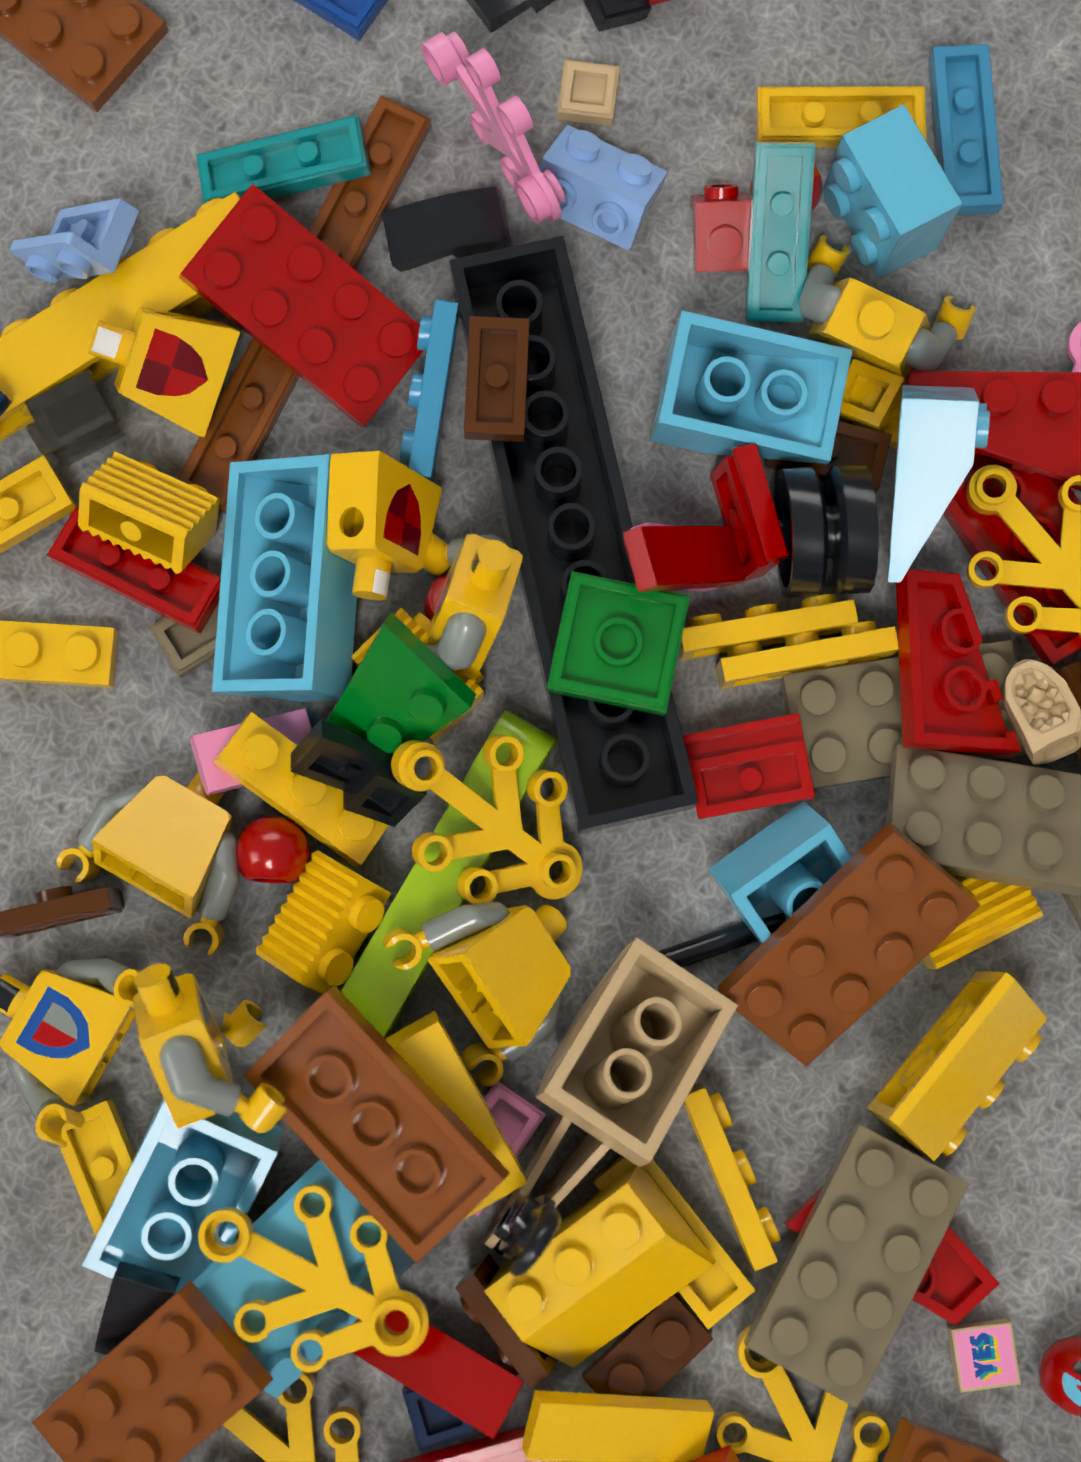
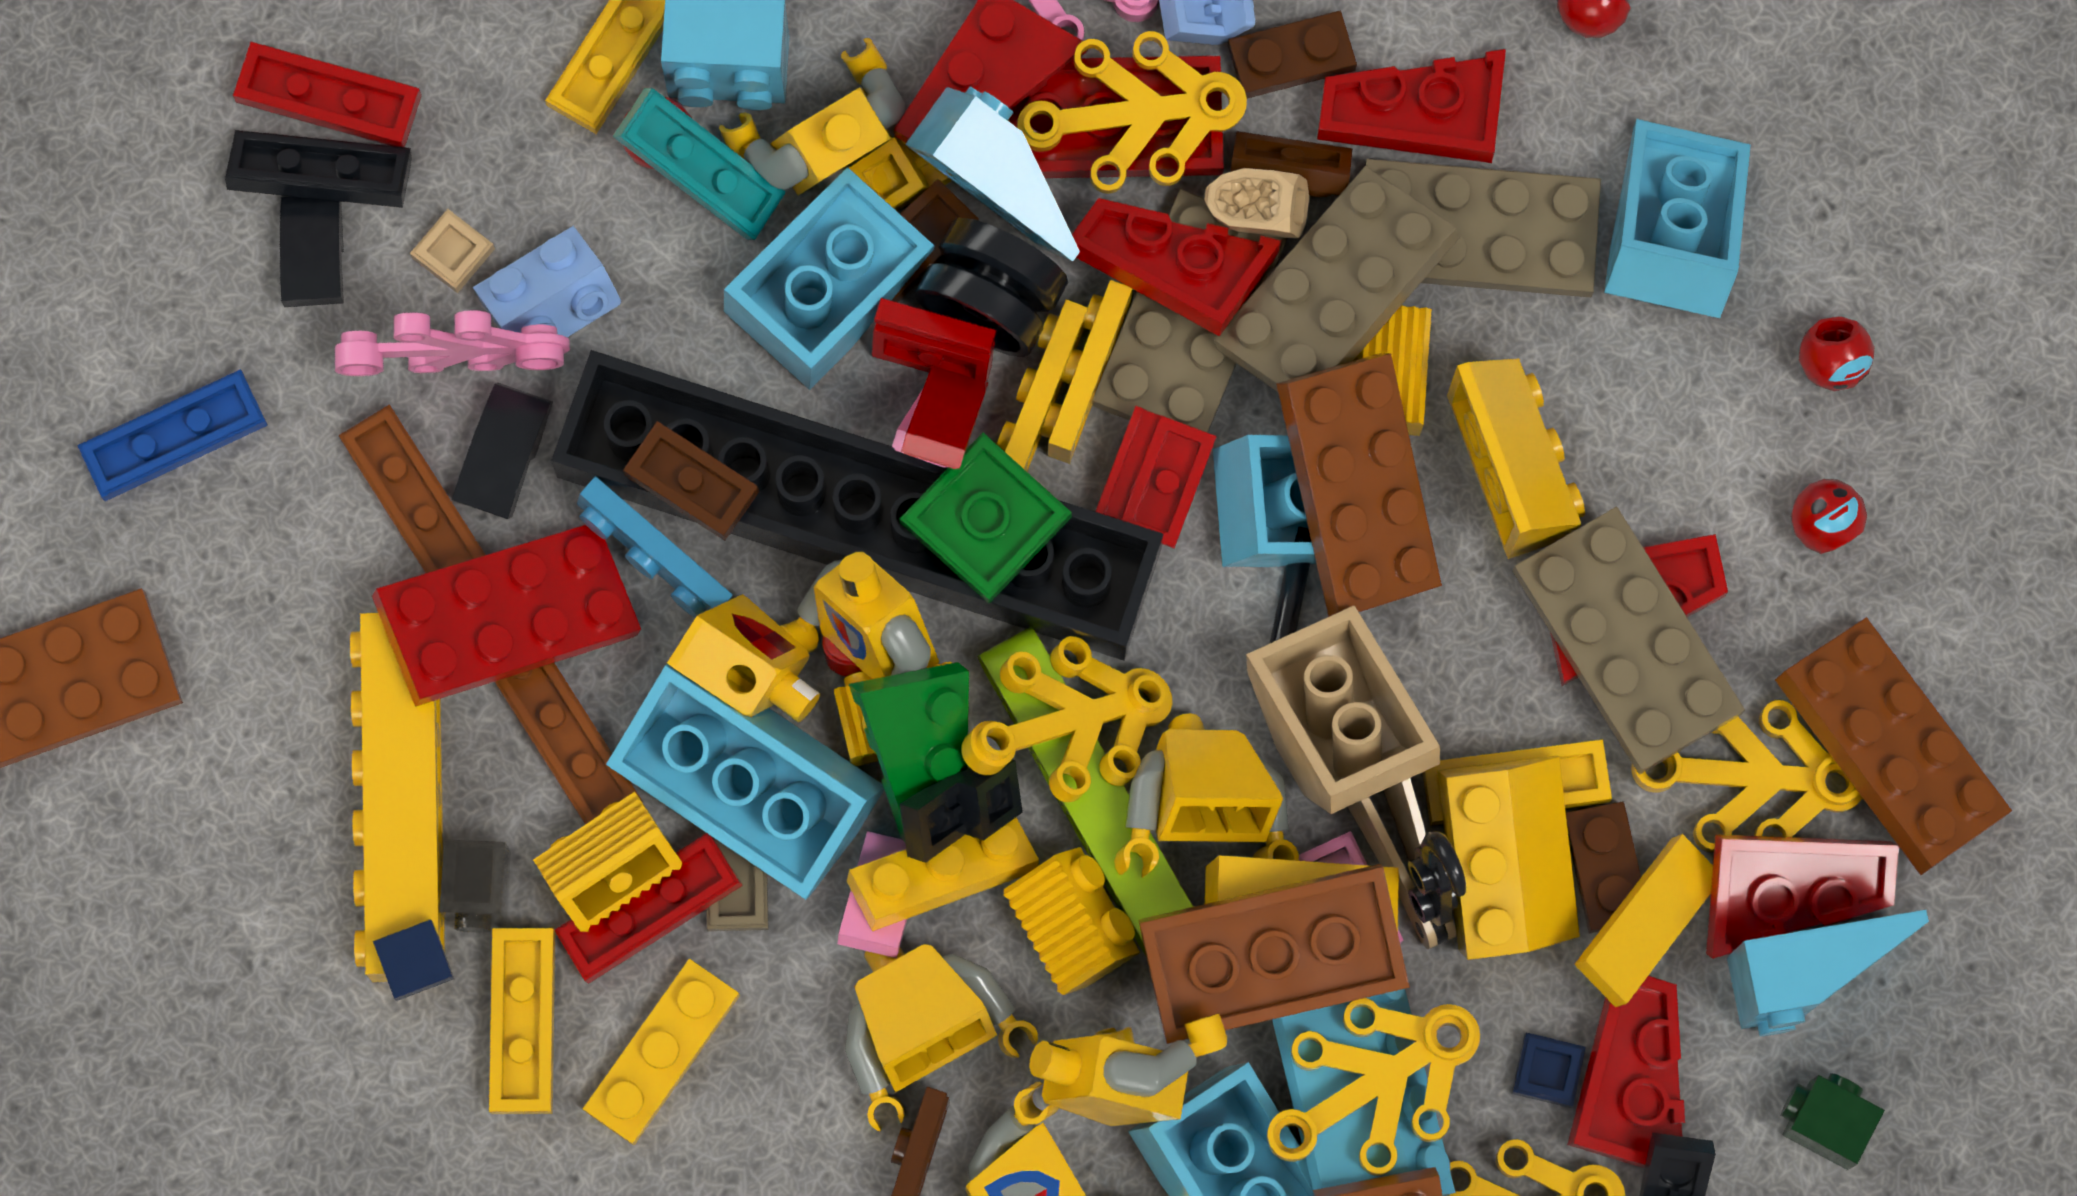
camera: 60 degrees left, 5 degrees down
(81, 243) = (318, 777): light blue bracket -> none
(169, 363) = (487, 759): yellow torso -> none
(272, 851) = (980, 928): red piece -> none
(287, 161) = (350, 559): teal tile -> none
(450, 1376) = (1518, 1043): red tile -> none
(516, 1355) = (1533, 968): reddish brown plate -> none
(721, 228) = (656, 210): bracket -> none
(732, 1176) = (1496, 703): yellow plate -> none
(983, 1355) = (1769, 586): tile -> none

